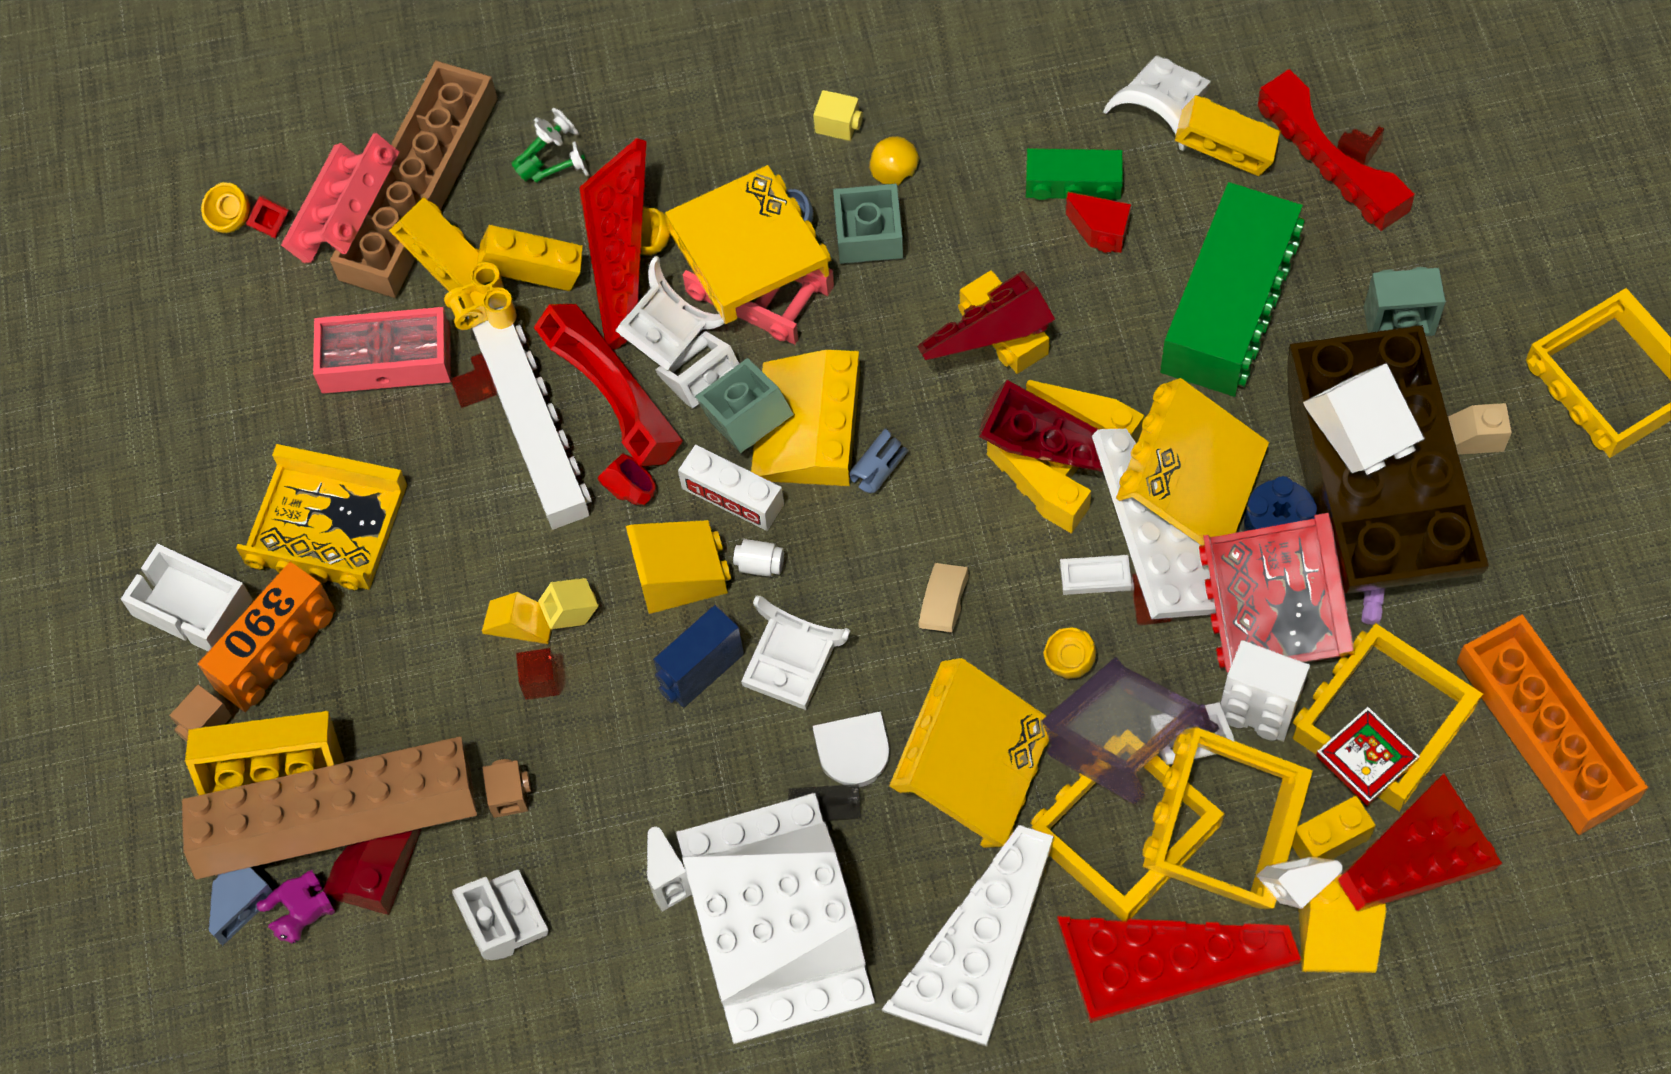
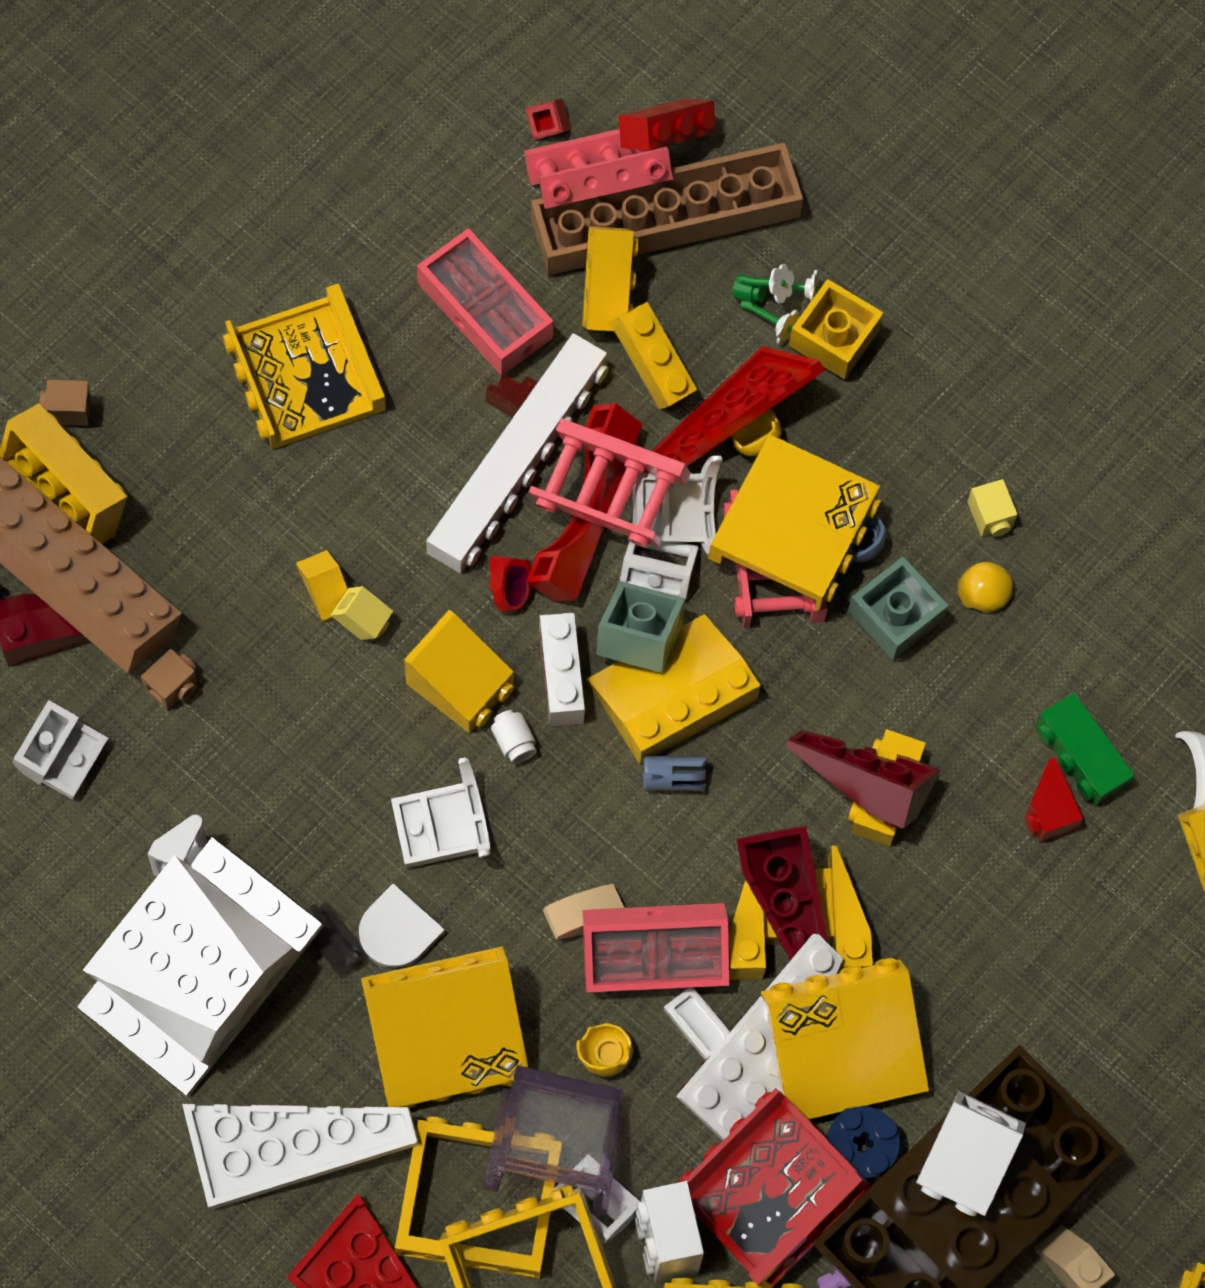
camera: 45 degrees right, 5 degrees up
(186, 598) = (156, 318): white piece -> none
(225, 208) = (526, 82): yellow piece -> none
(267, 637) = (166, 403): orange brick -> none
(350, 128) = (667, 124): none -> red brick
(482, 300) = (576, 345): yellow piece -> none
(537, 673) = (284, 633): clear red panel -> none
(609, 122) = (836, 328): none -> yellow brick
(612, 315) = (605, 450): none -> coral fence
(698, 657) = (382, 749): dark blue brick -> none
(1016, 559) = (655, 947): none -> brick
(1233, 290) = (1060, 962): green brick -> none
(1405, 300) = (1157, 1121): sand green brick -> none

